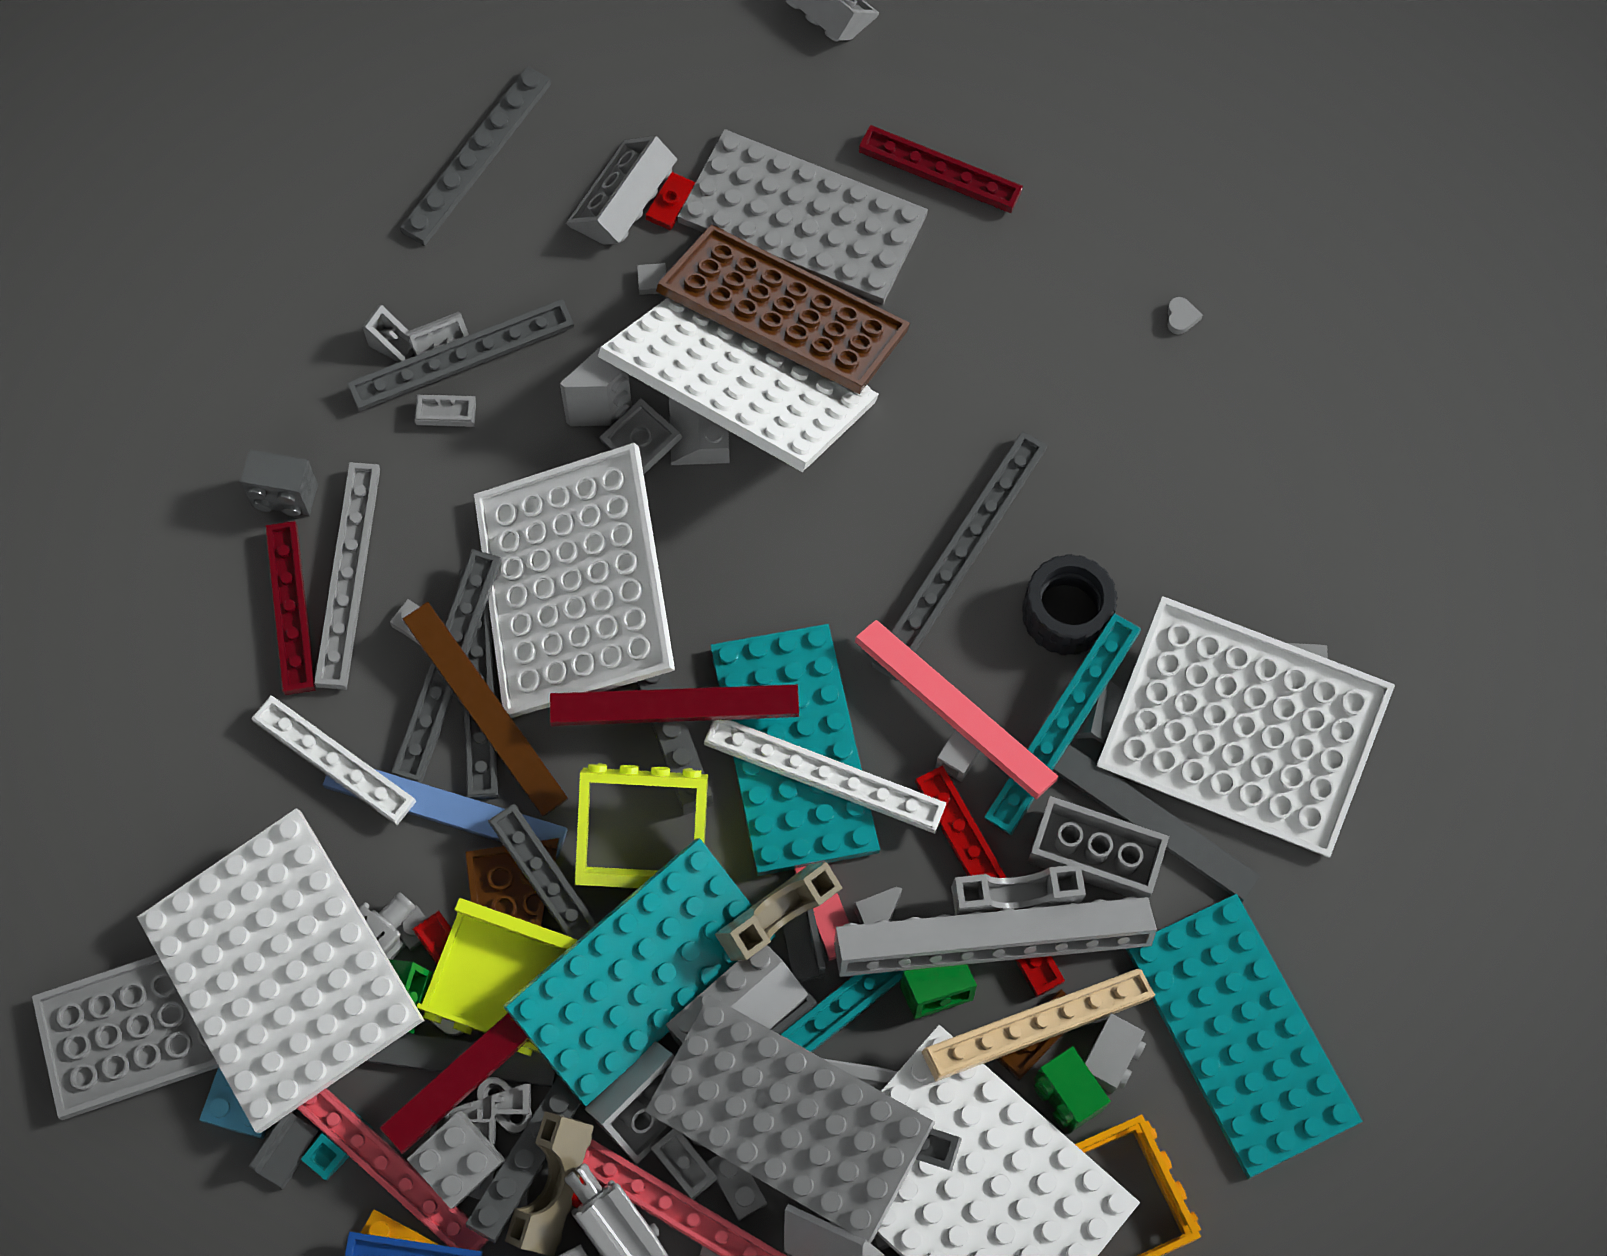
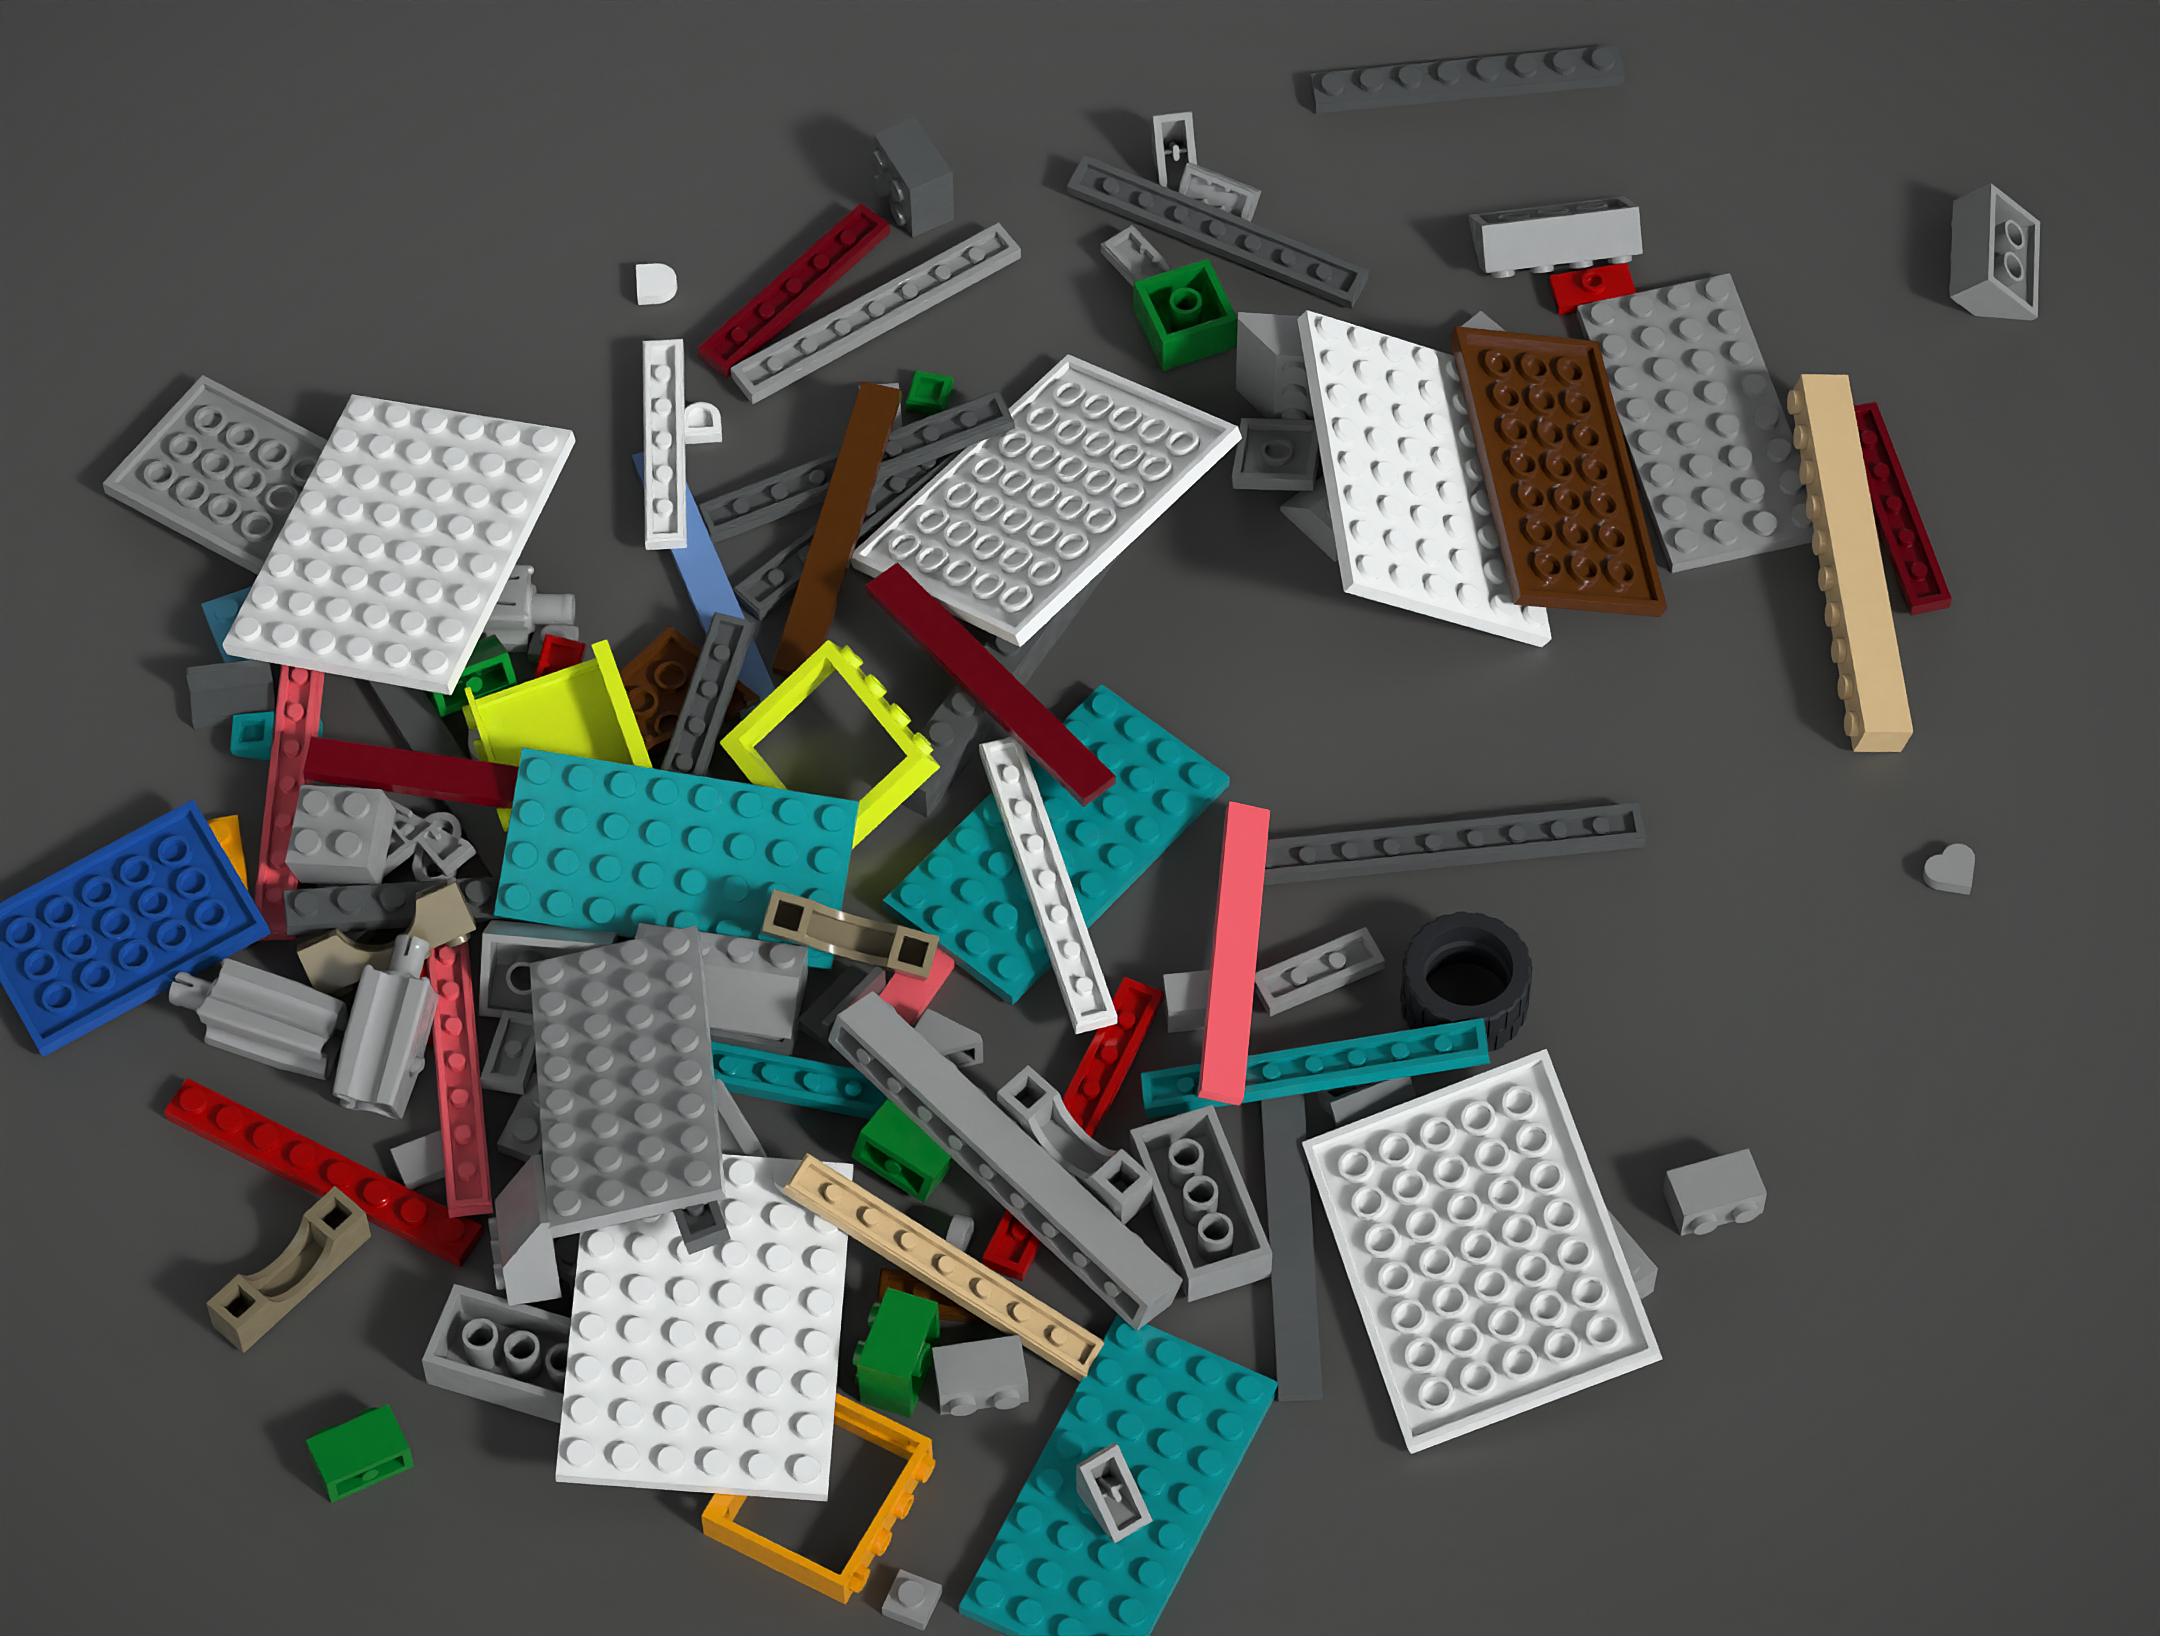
camera: 55 degrees right, 10 degrees down
(210, 680) = (655, 283): none -> white tile
(335, 726) = (702, 423): none -> white tile
(428, 587) = (929, 393): none -> green tile
(506, 413) = (1185, 314): none -> green brick
(963, 213) = (1850, 564): none -> tan brick
(993, 671) = (1318, 971): none -> light grey plate
(1012, 997) = (960, 1232): none -> light grey tile
(1223, 1200) = (911, 1600): none -> light grey plate
(1253, 1040) = (1111, 1493): none -> light grey slope
(1291, 581) = (1714, 1192): none -> light grey brick

